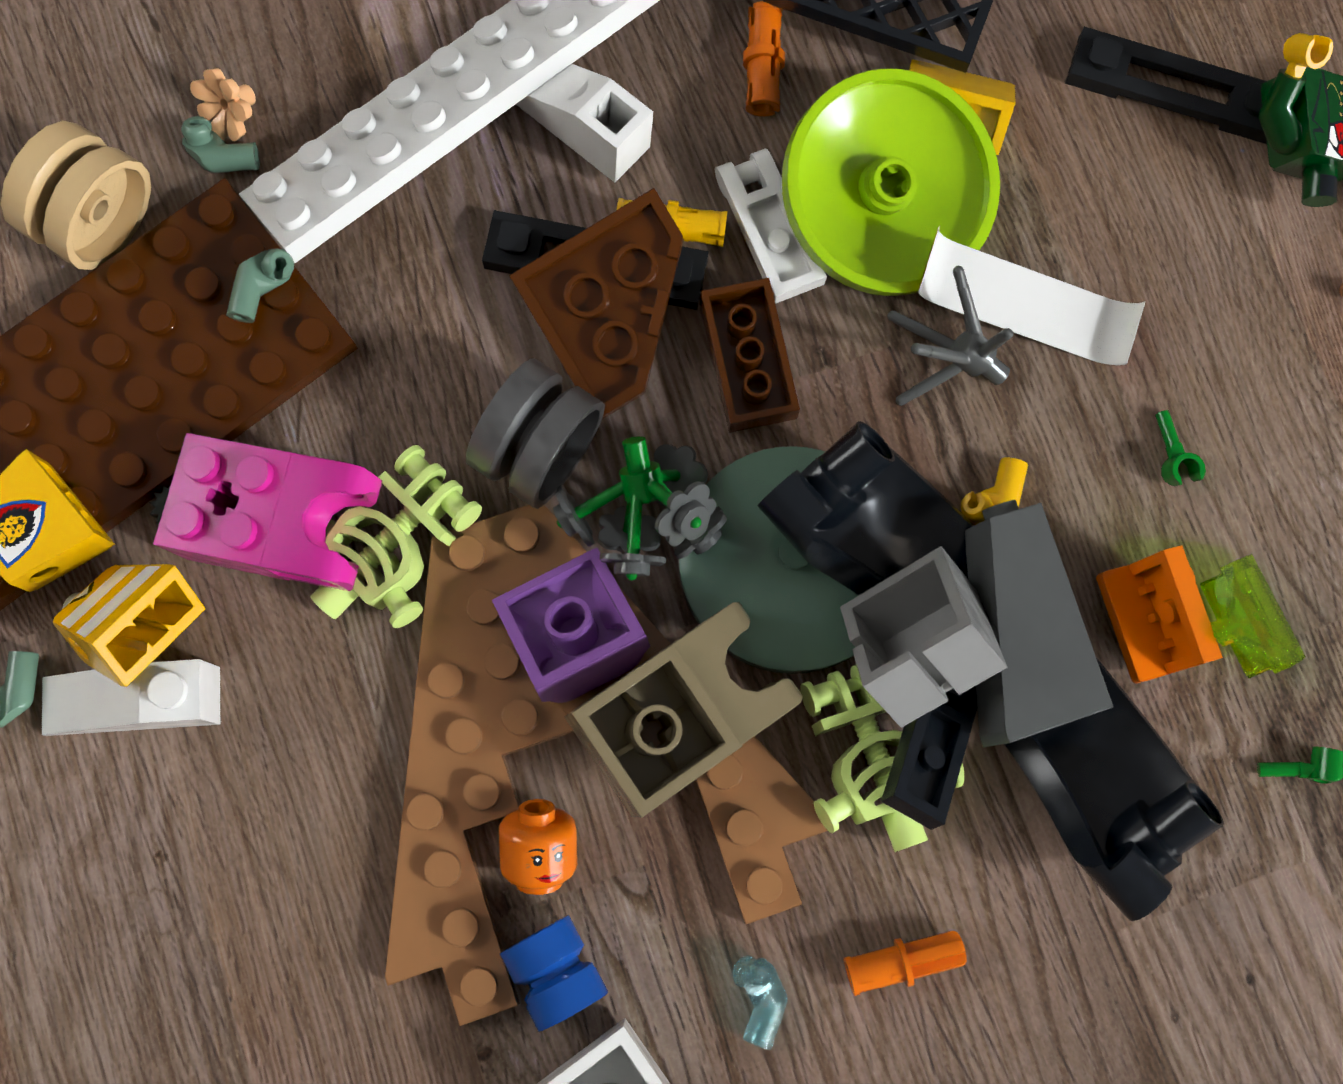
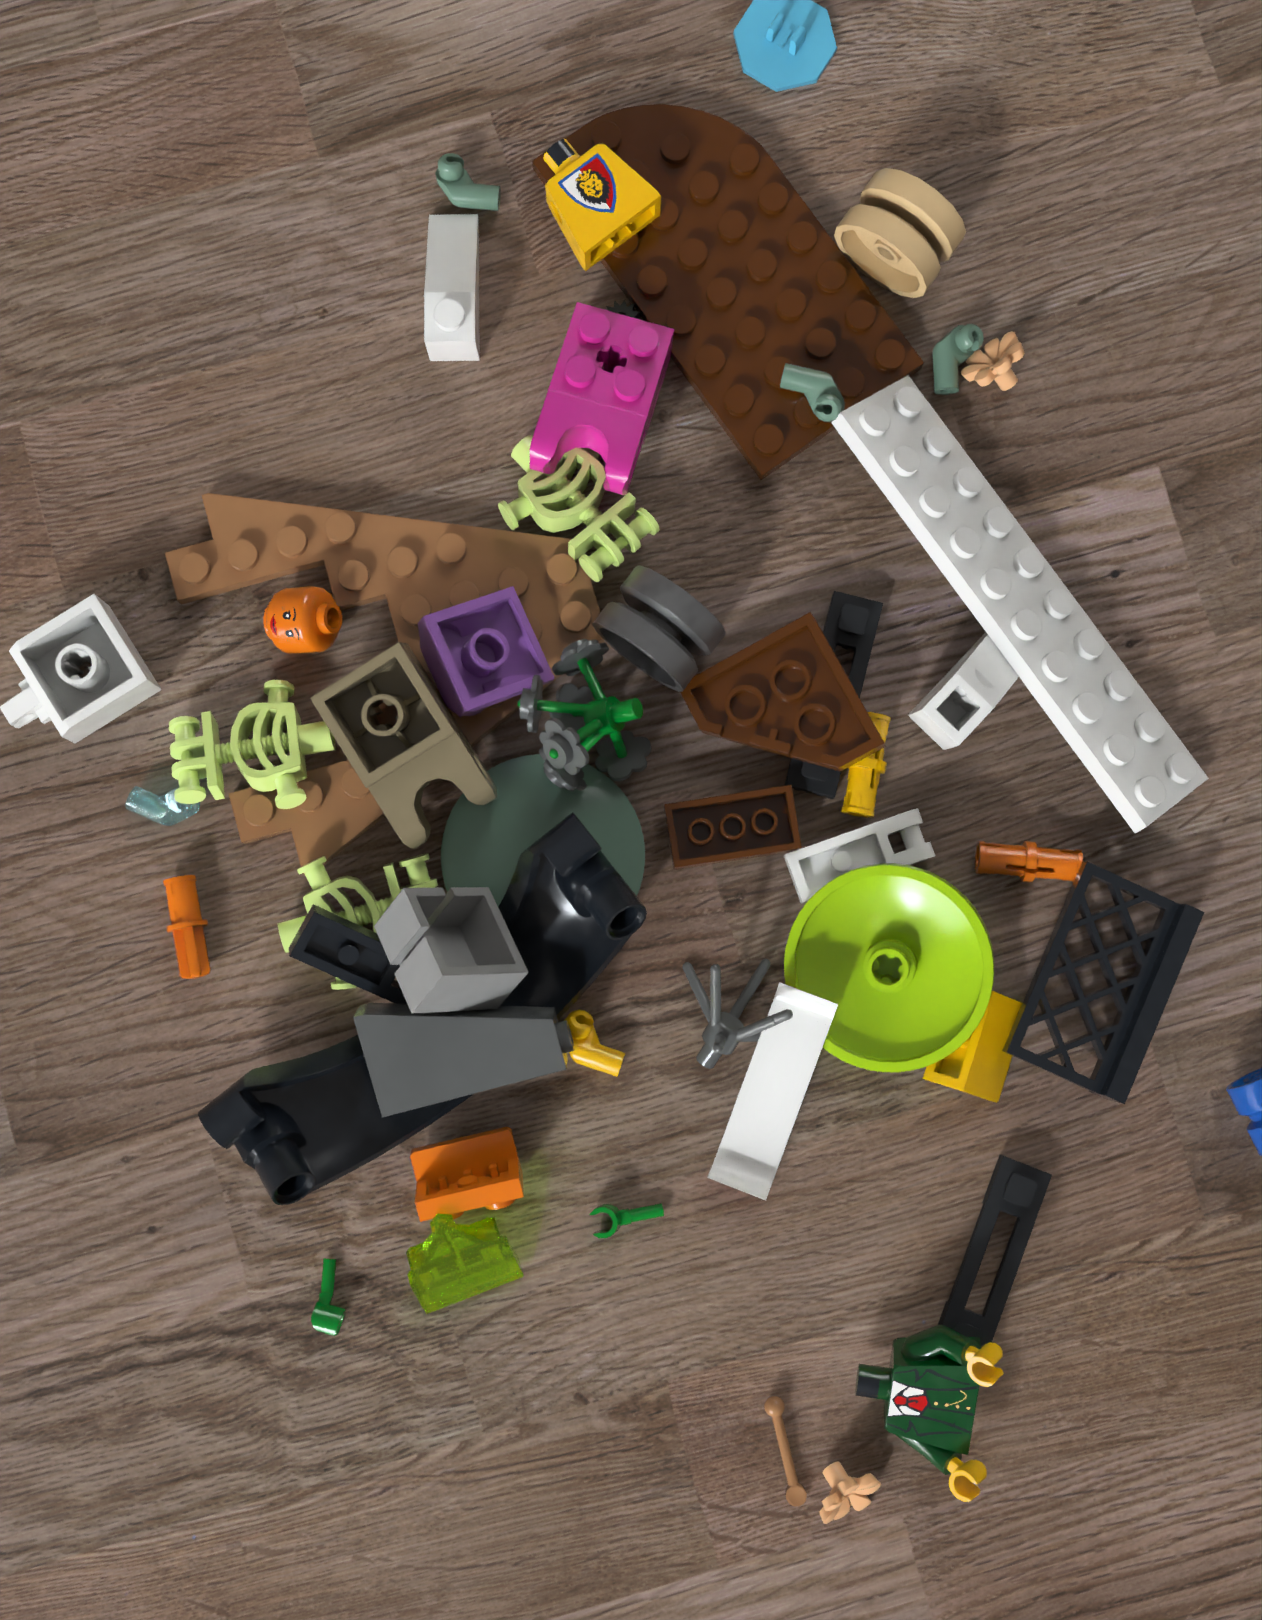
camera: 95 degrees right, 5 degrees up
(128, 618) = (515, 281): yellow torso -> none
(554, 973) = (197, 630): blue wheel -> none
(681, 840) = (204, 754): none -> yellowish green piece

